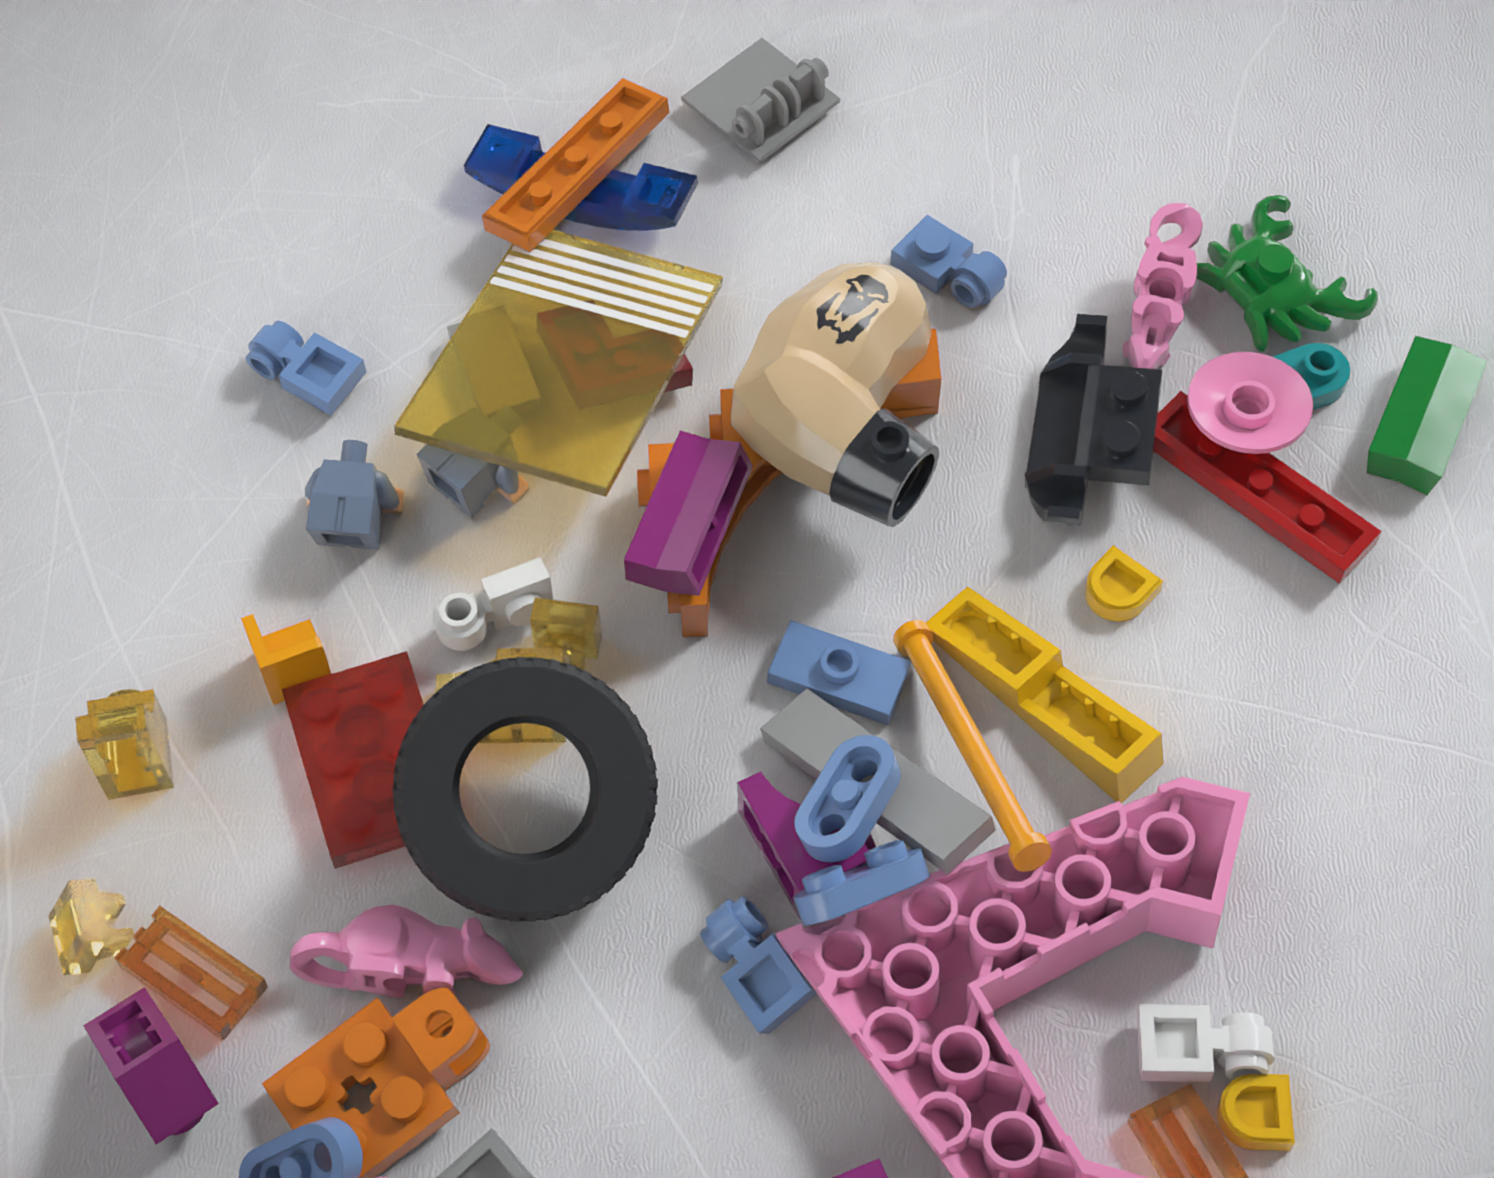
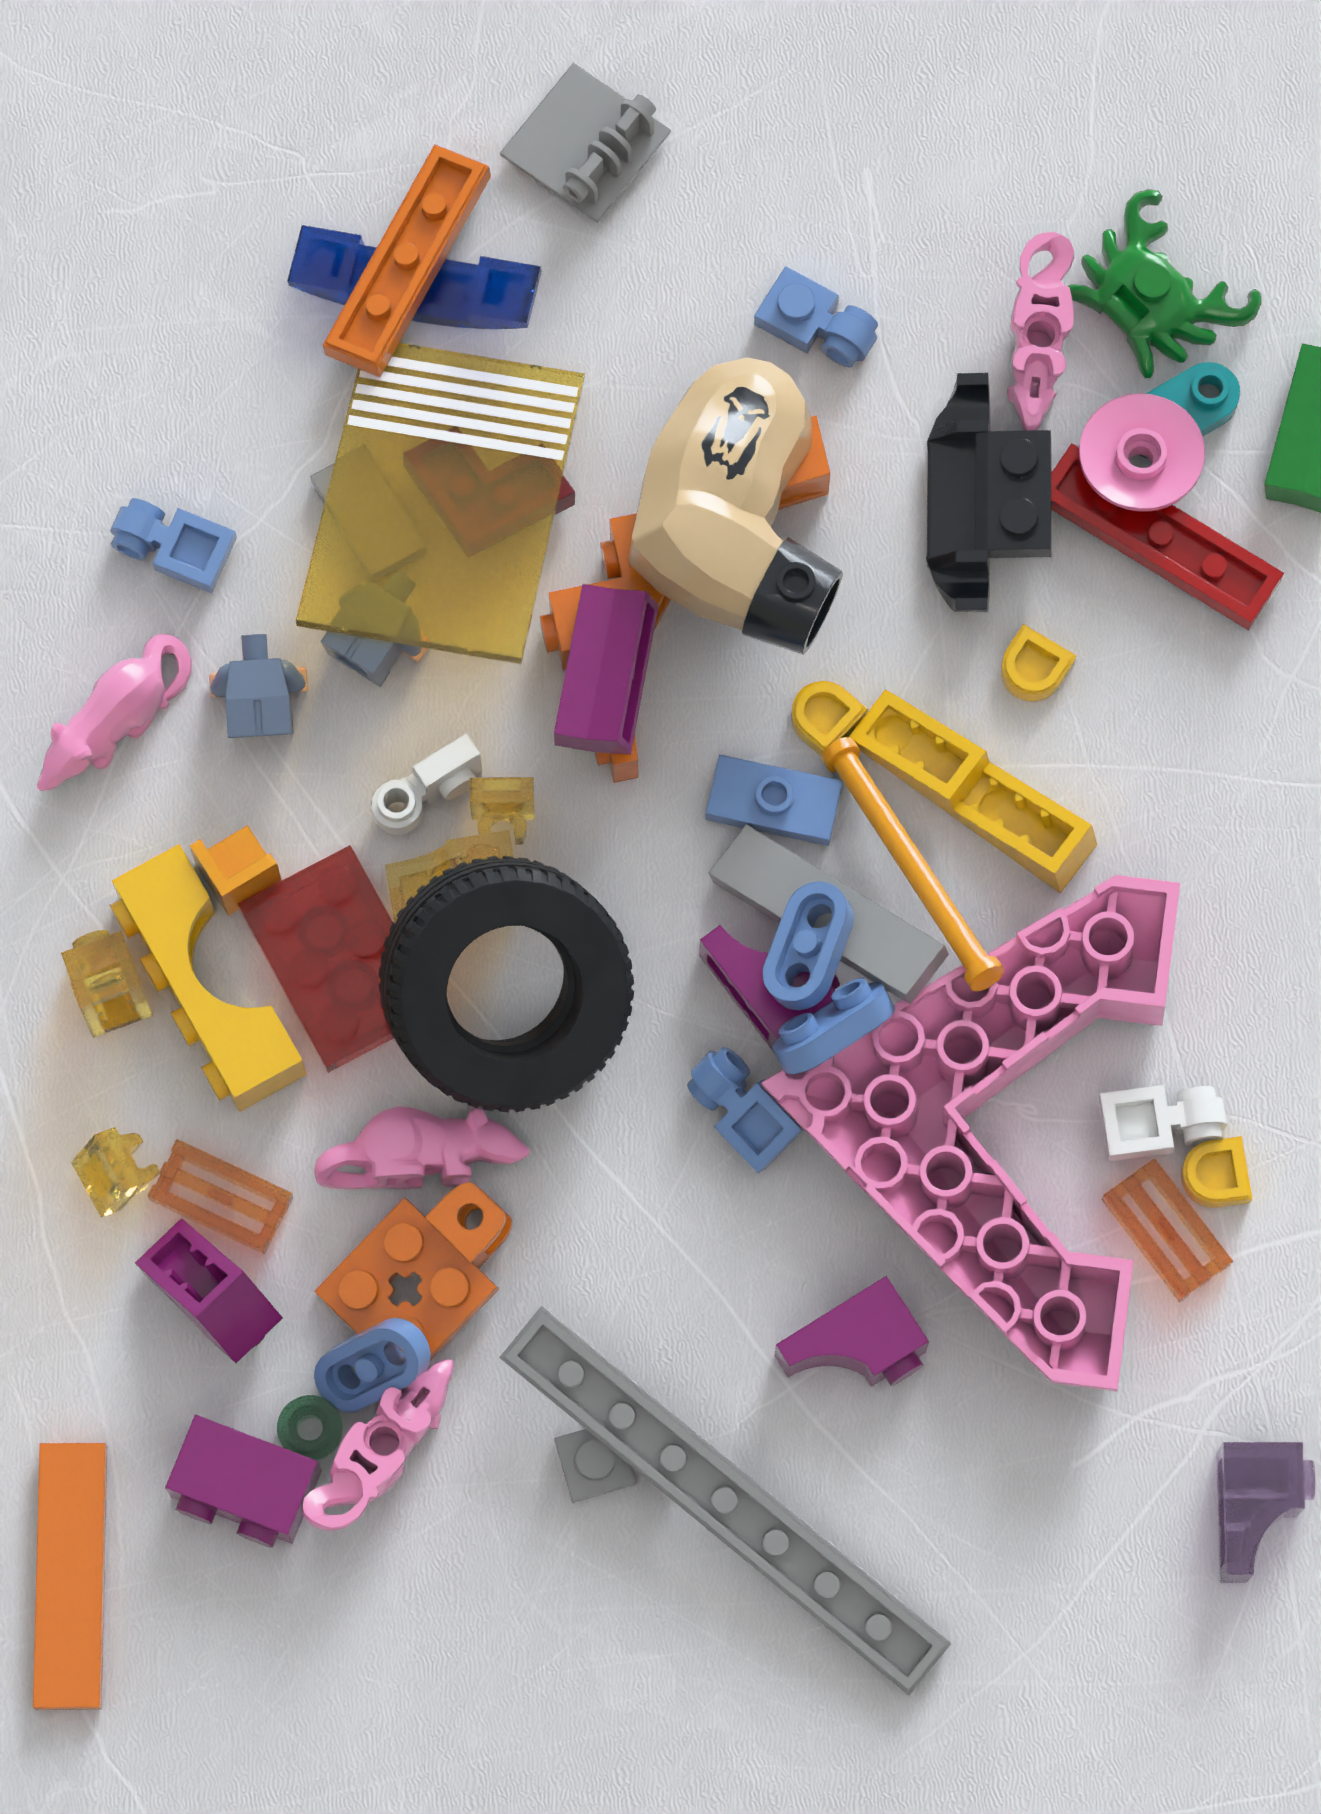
camera: 10 degrees left, 15 degrees up
(215, 492) = (119, 706): none -> bright pink animal
(251, 819) = (245, 1045): none -> yellow arch
(903, 597) = (825, 714): none -> yellow tile

